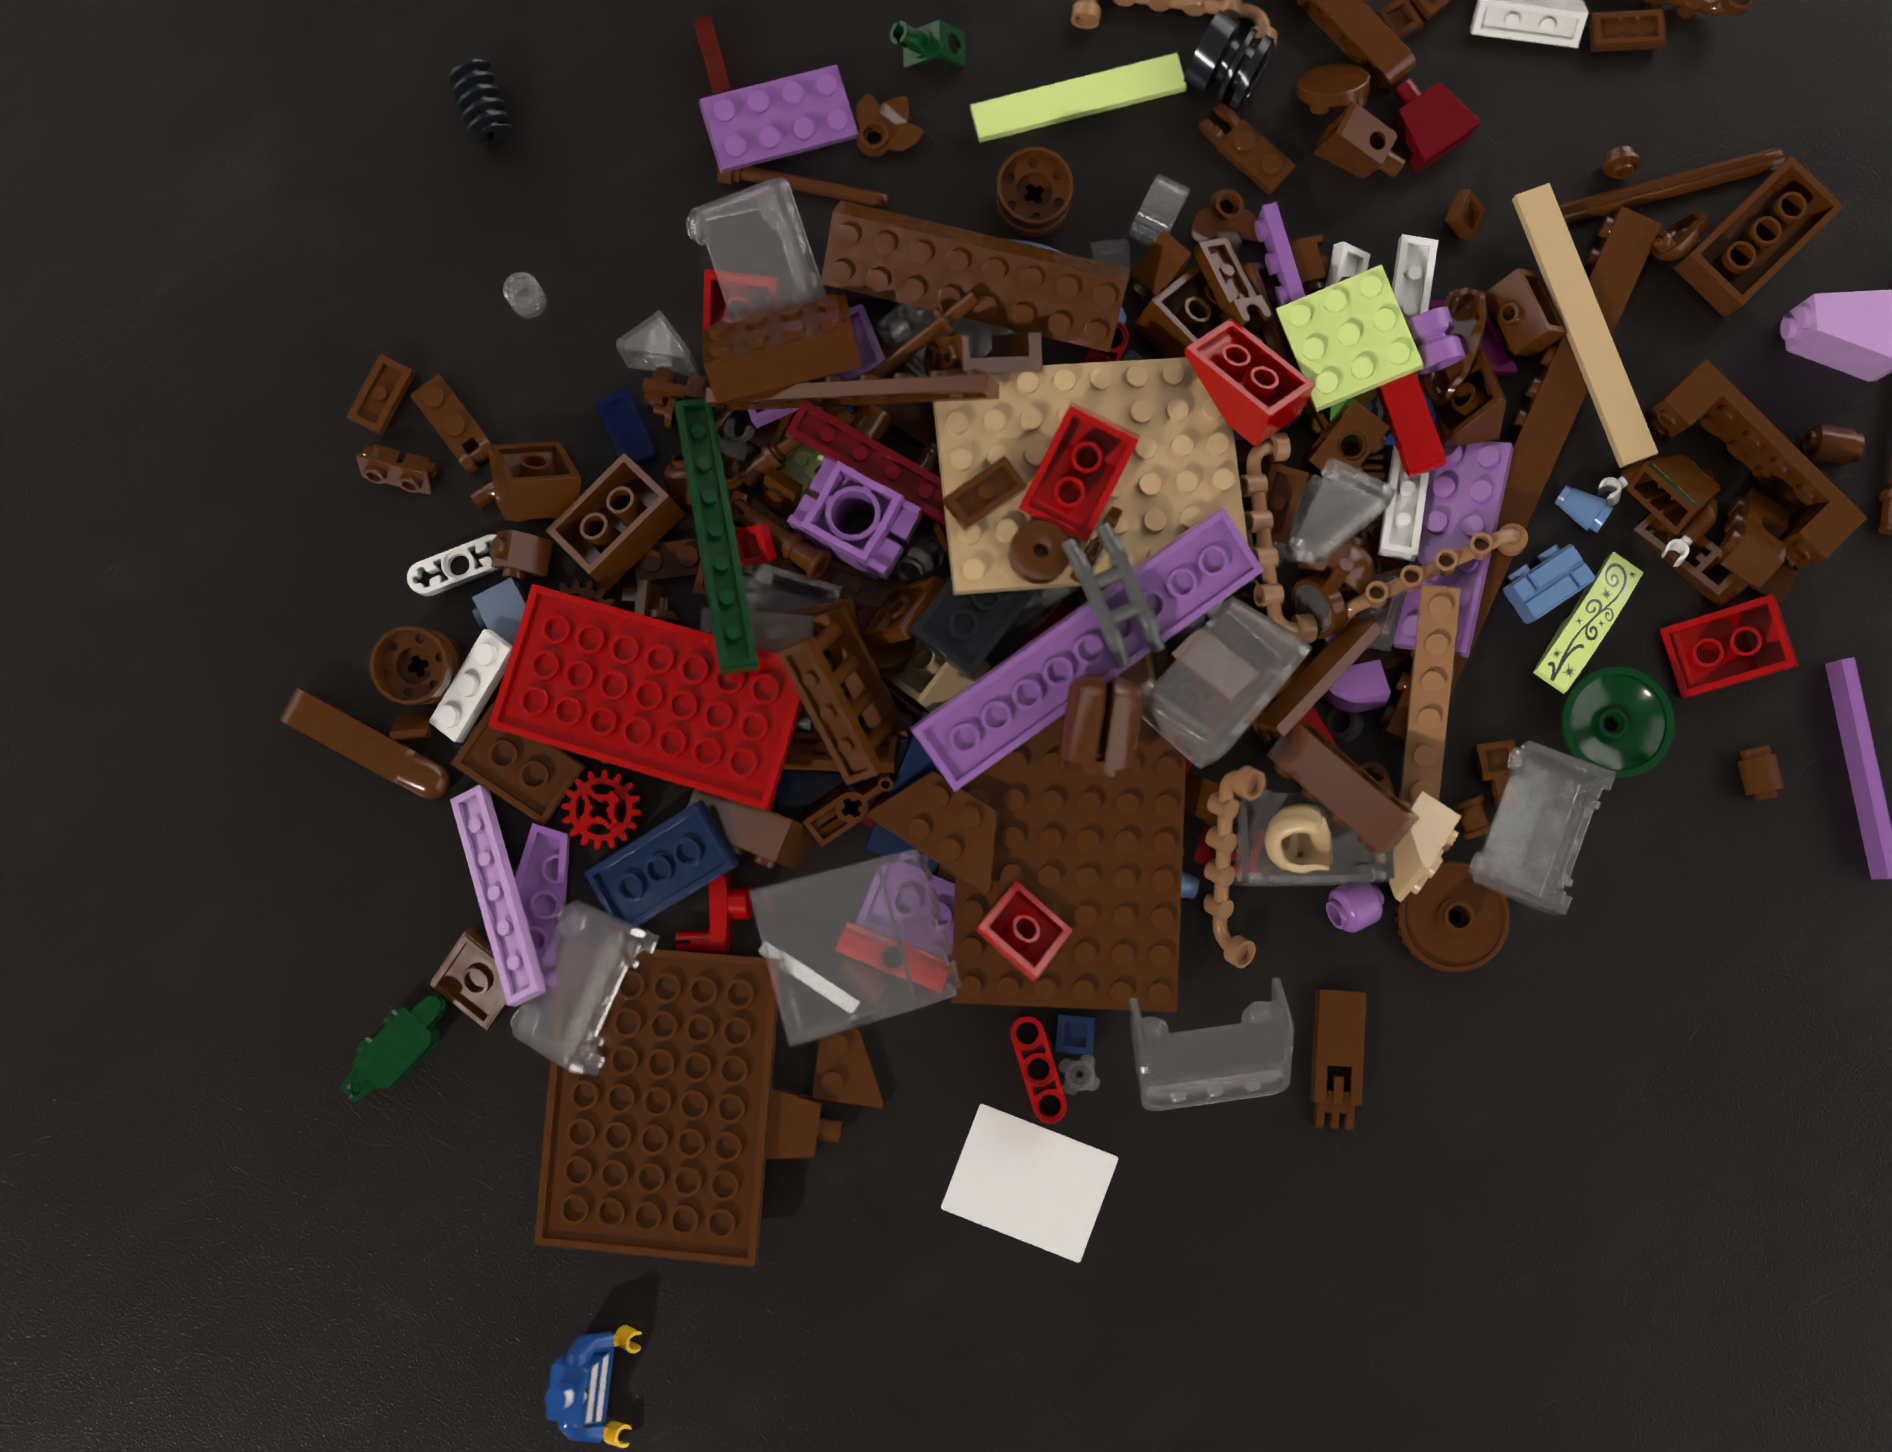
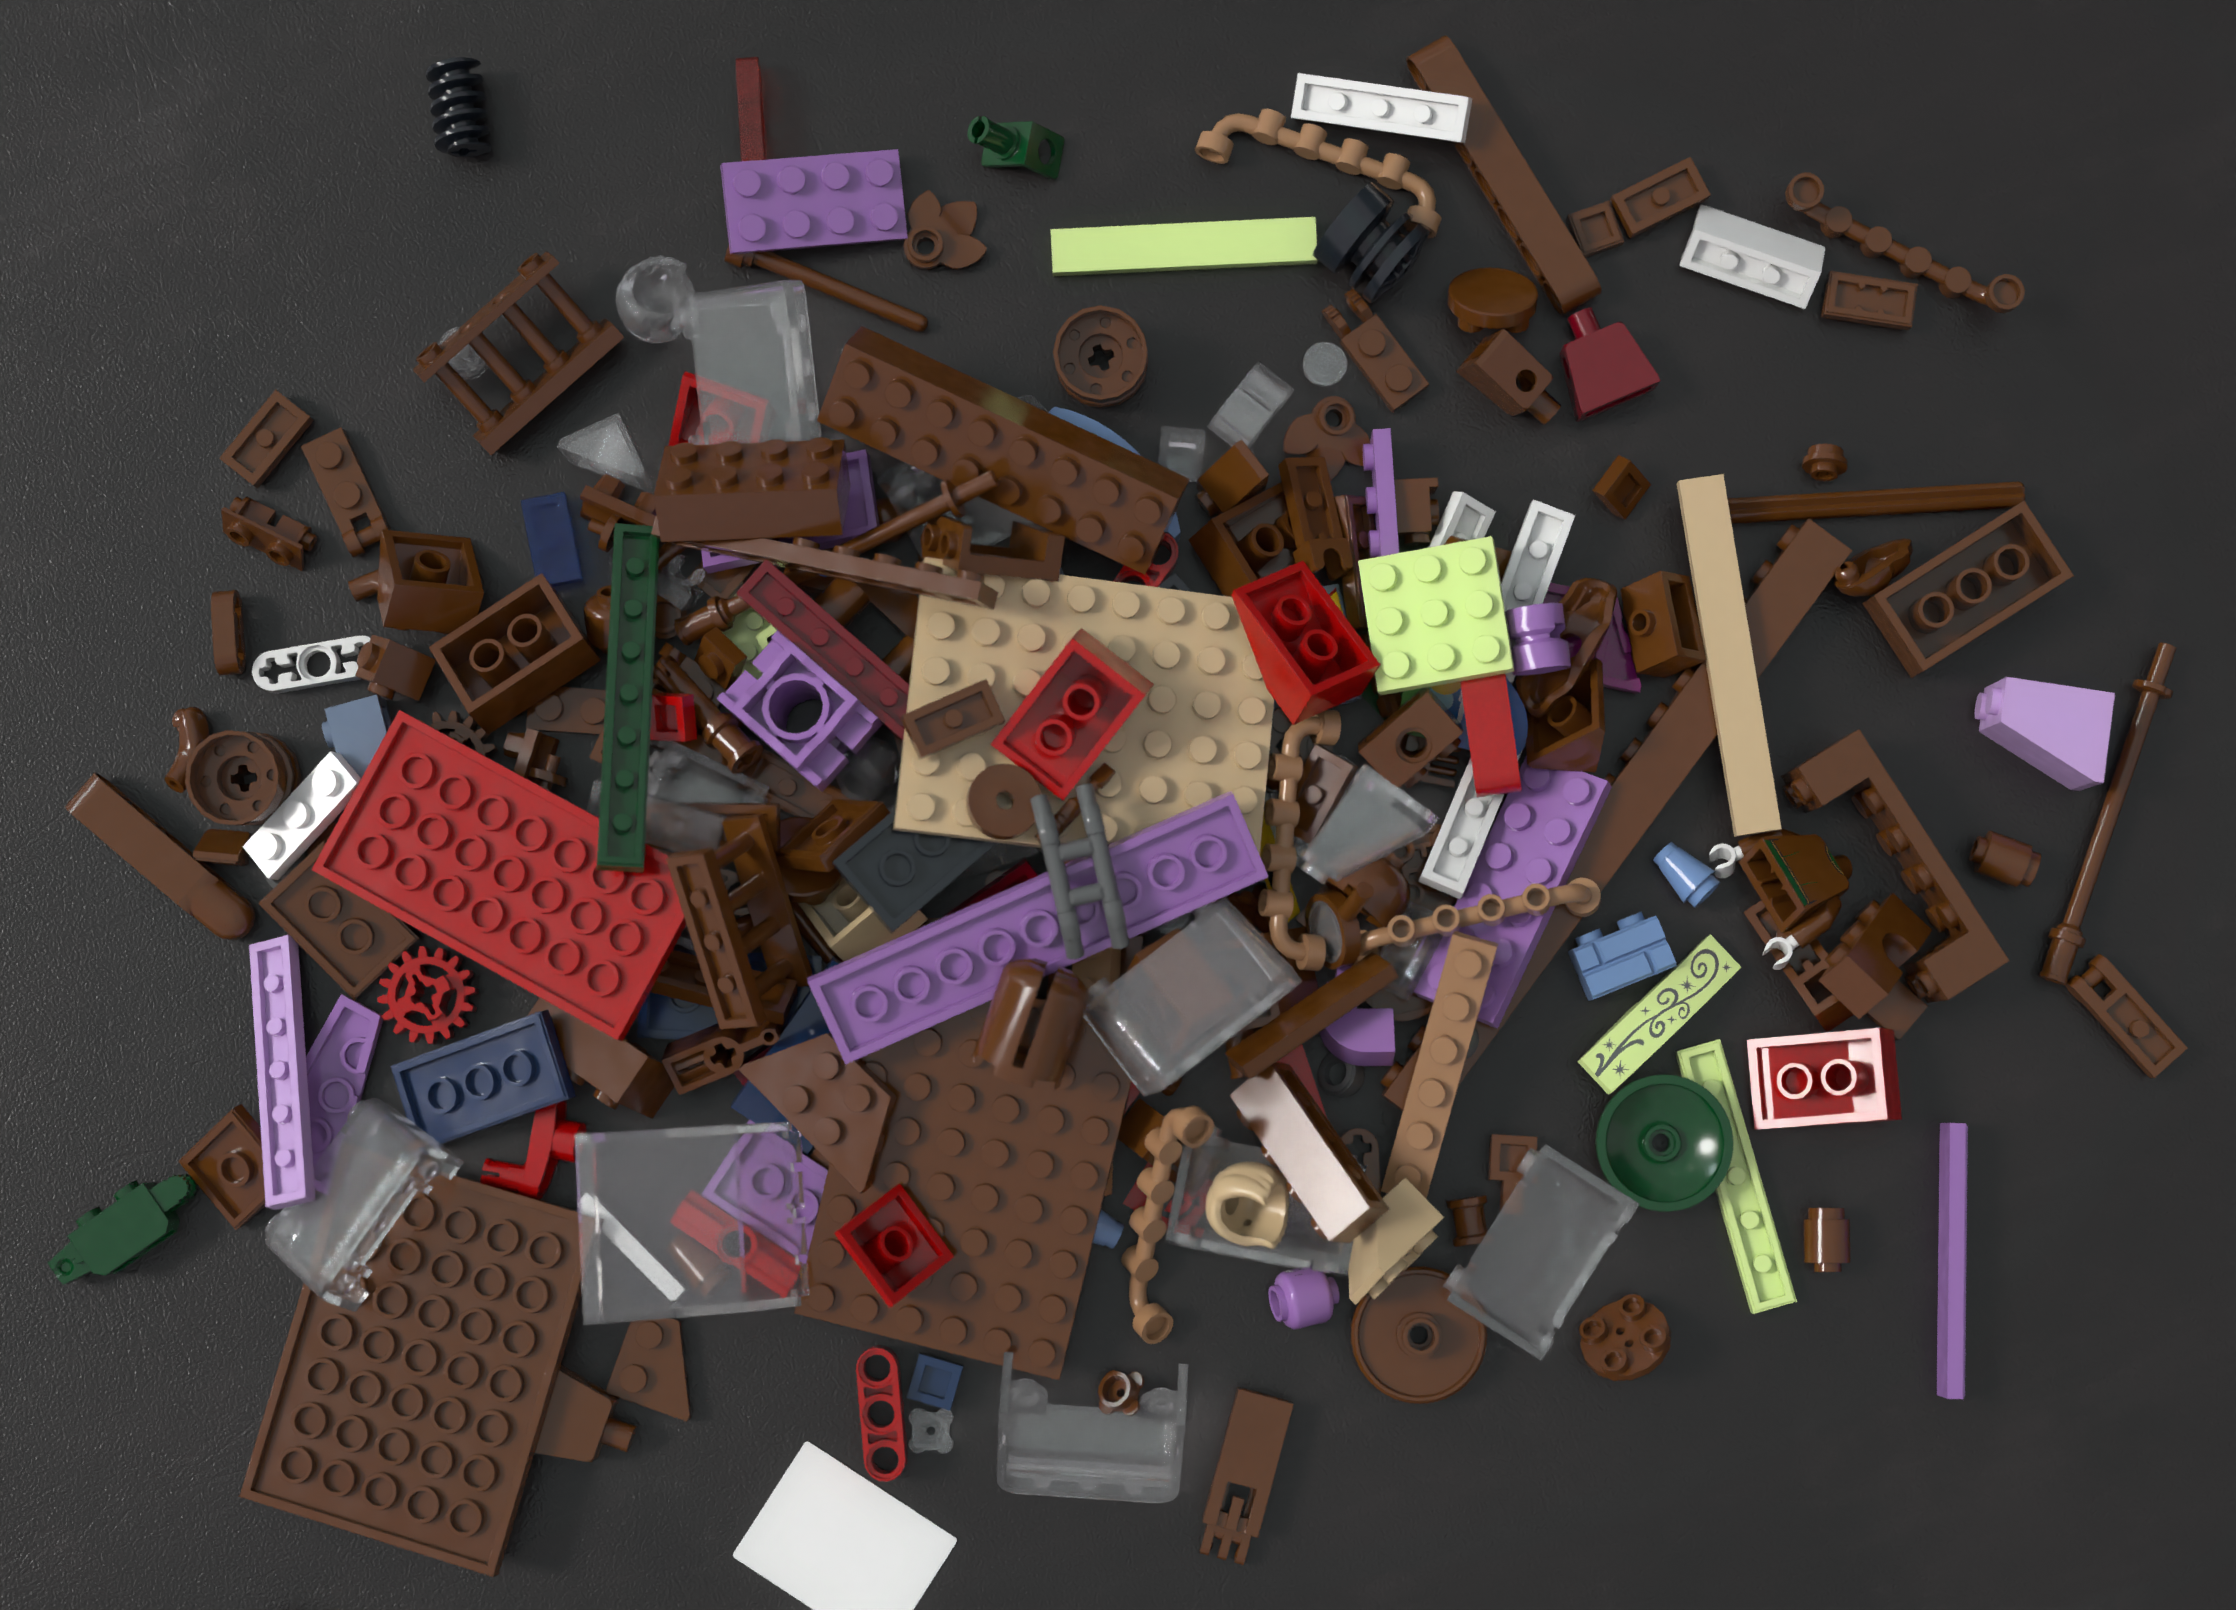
camera: 10 degrees right, 0 degrees up
(367, 634) = (192, 730): none -> reddish brown arm
(381, 554) = (228, 632): none -> reddish brown beam
(605, 290) = (527, 396): none -> reddish brown fence
(663, 219) = (648, 284): none -> clear piece
(1209, 166) = (1324, 364): none -> clear plate
(1215, 1011) = (1111, 1387): none -> reddish brown plate
(1631, 873) = (1609, 1352): none -> reddish brown plate
(1685, 756) = (1742, 1190): none -> yellowish green tile

